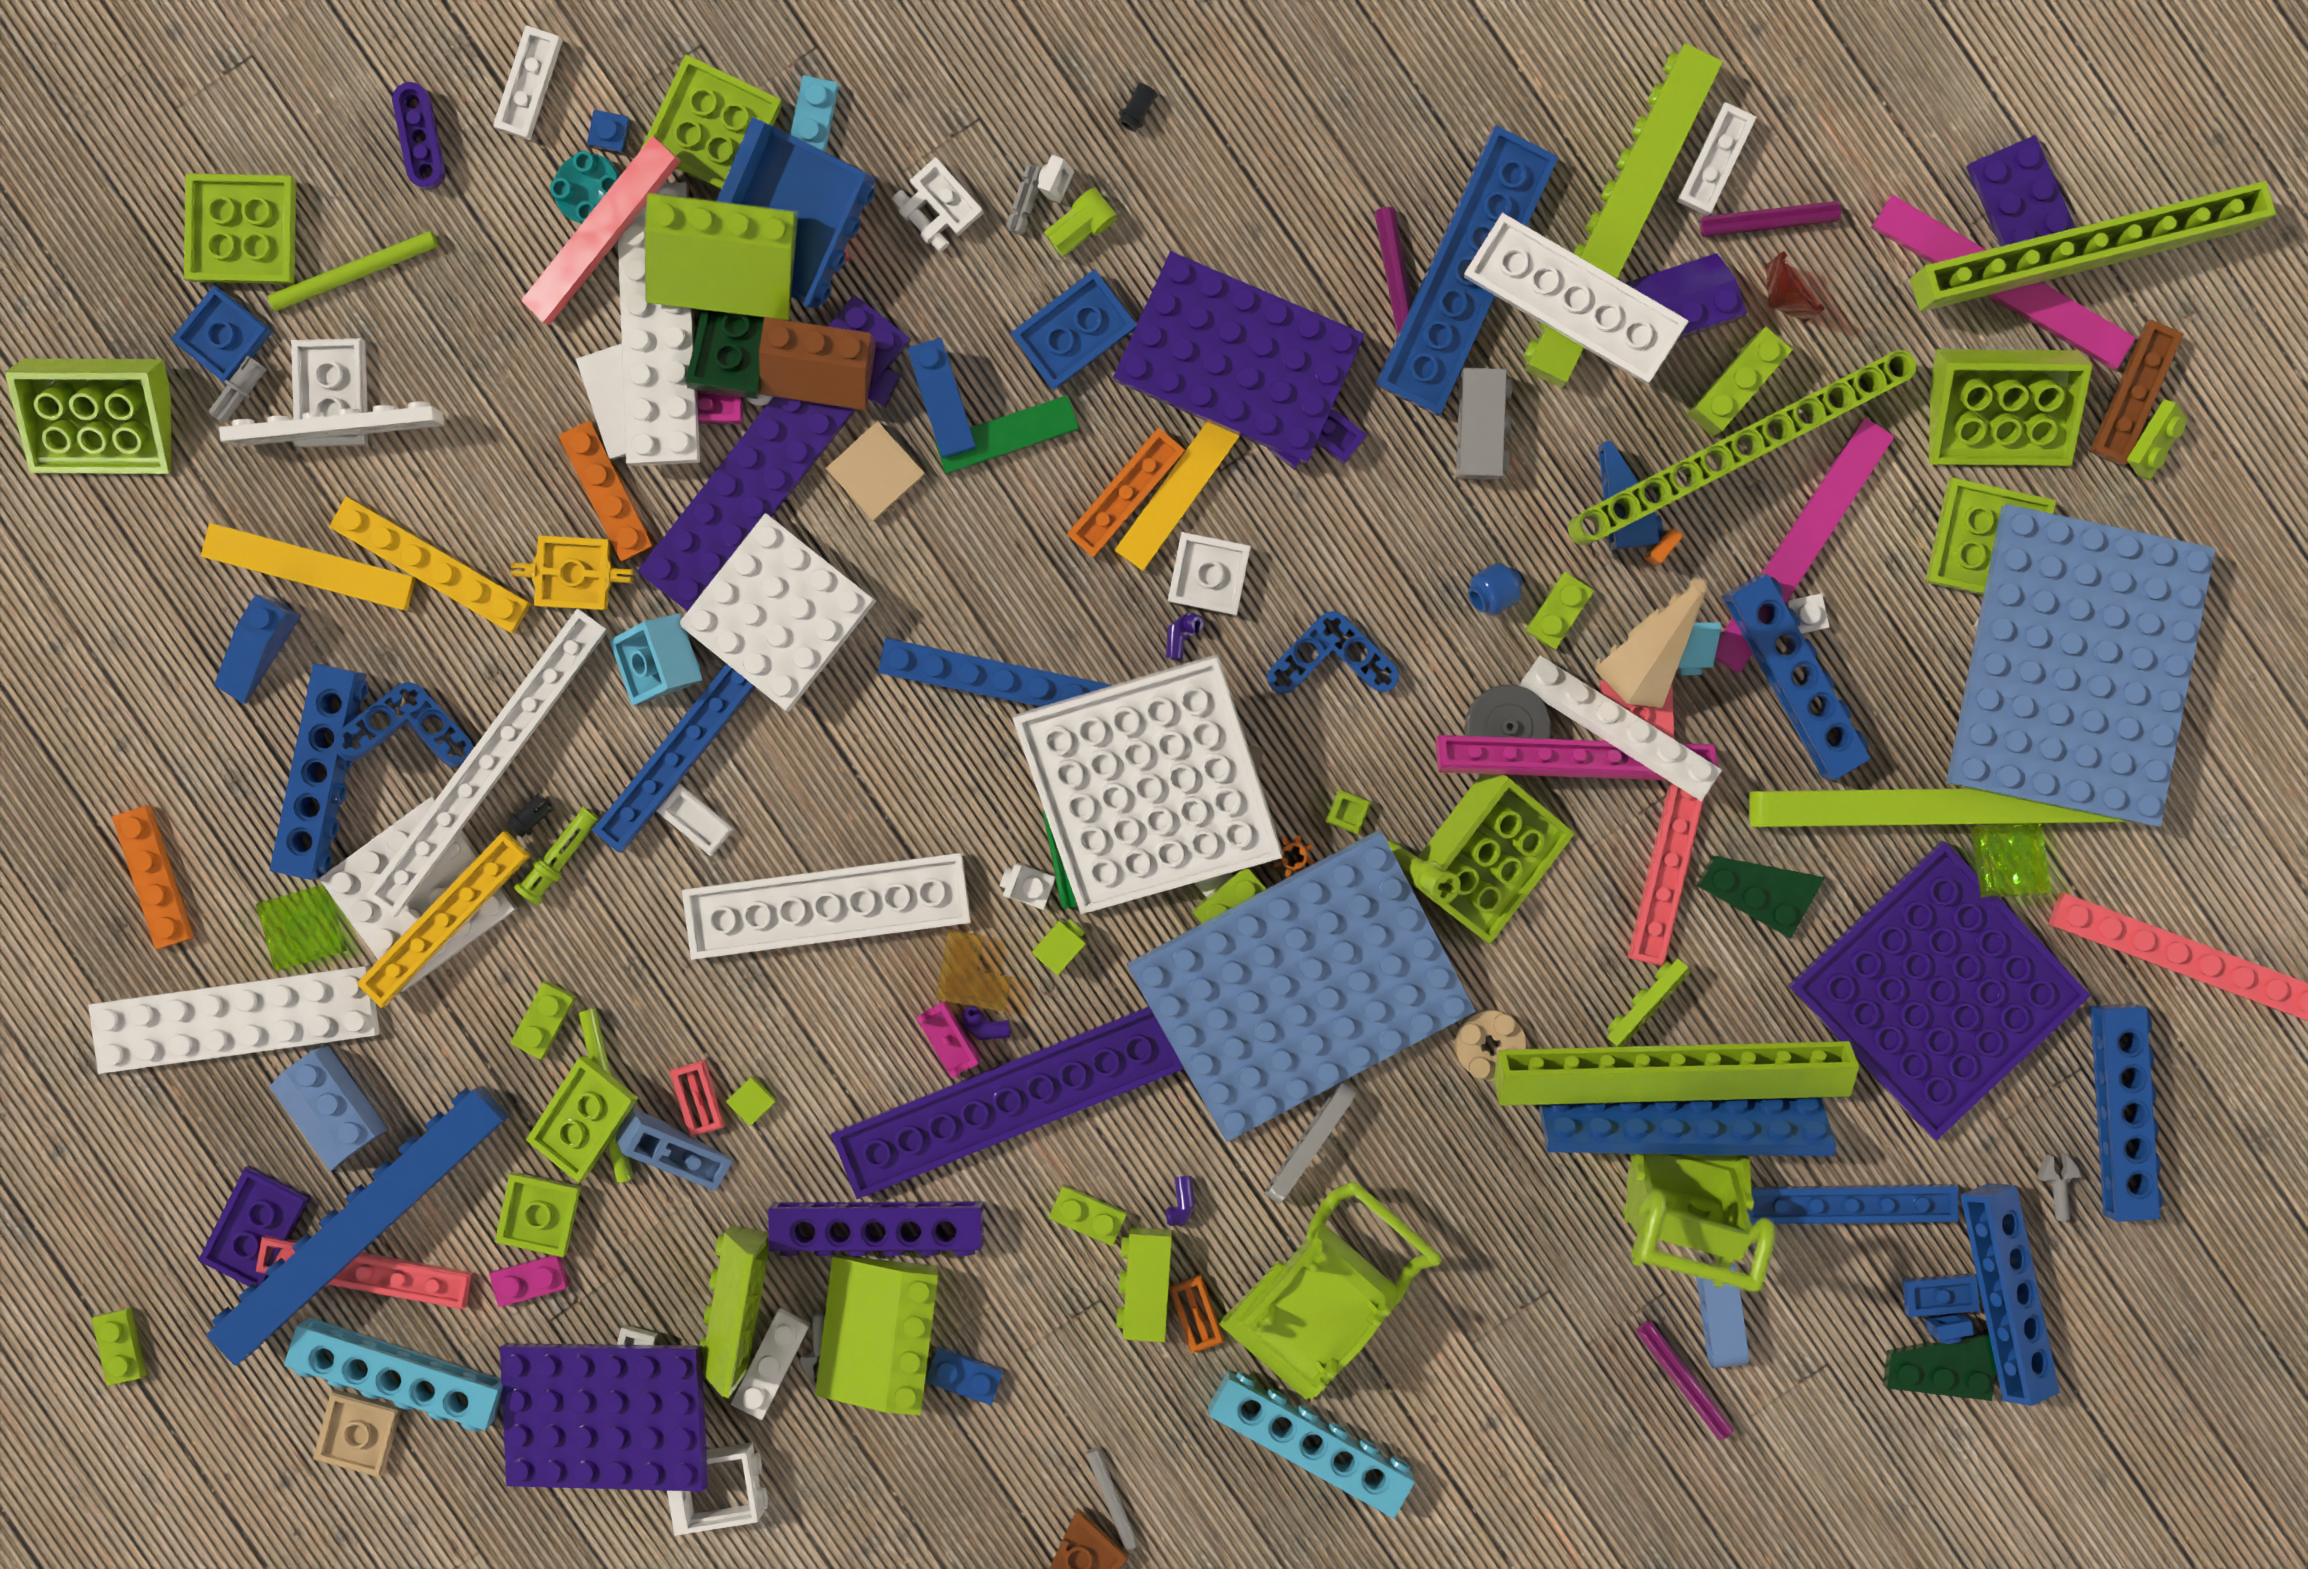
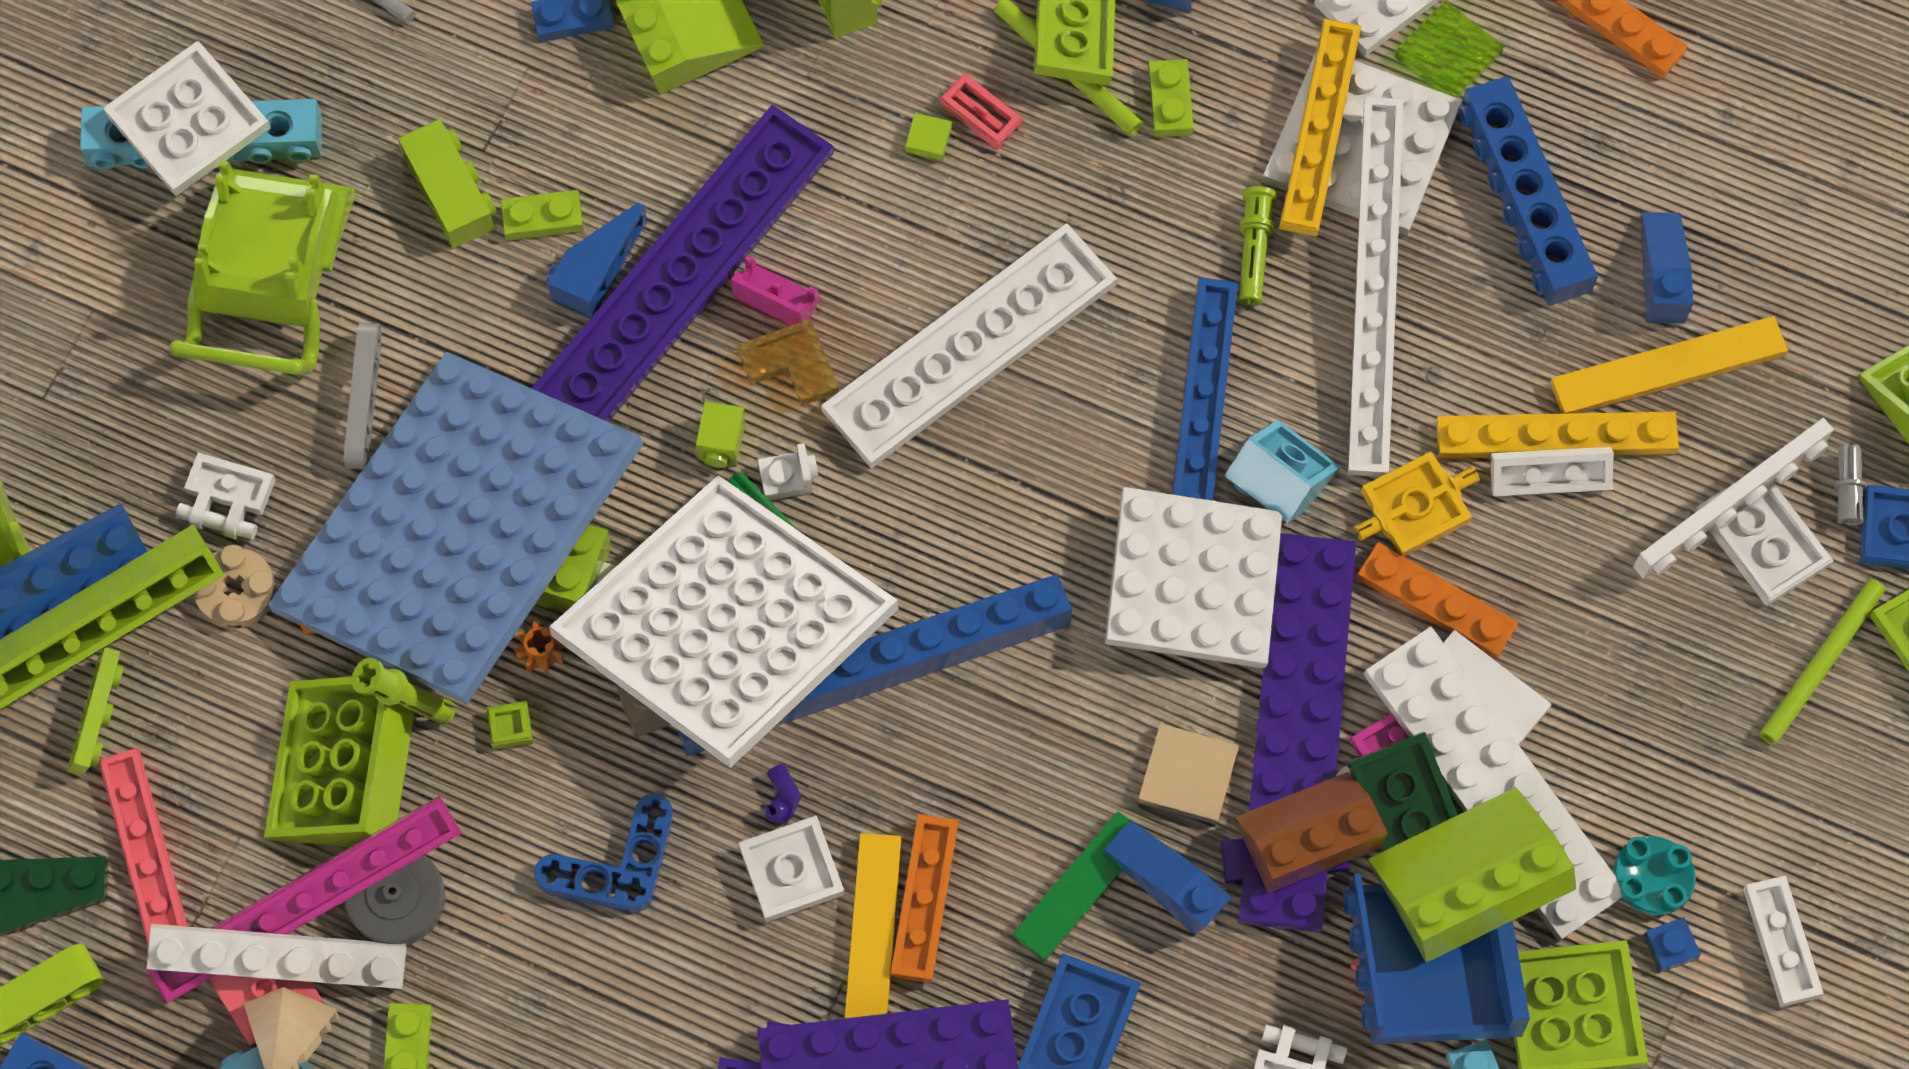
camera: 145 degrees right, 20 degrees down
(411, 124) = (1844, 807): dark purple plate -> none
(413, 717) = (1473, 287): blue beam -> none
(454, 535) = (1552, 471): none -> white plate
(528, 817) = (1308, 255): black pin -> none
(600, 230) = (1609, 837): coral tile -> none
(671, 1150) = (978, 50): medium blue slope -> none
(695, 819) = (1147, 352): white tile -> none
(964, 1215) = (729, 110): dark purple brick -> none
(982, 1027) = (747, 322): dark purple arm -> none
(1076, 1145) = (594, 263): none -> blue slope
(1185, 1202) = (454, 277): dark purple arm -> none
(1186, 1285) = (405, 206): orange tile -> none
(1320, 1456) = (186, 118): none -> white plate
(1450, 1130) = (226, 484): none -> white plate
(1495, 589) = (487, 1024): blue head -> none

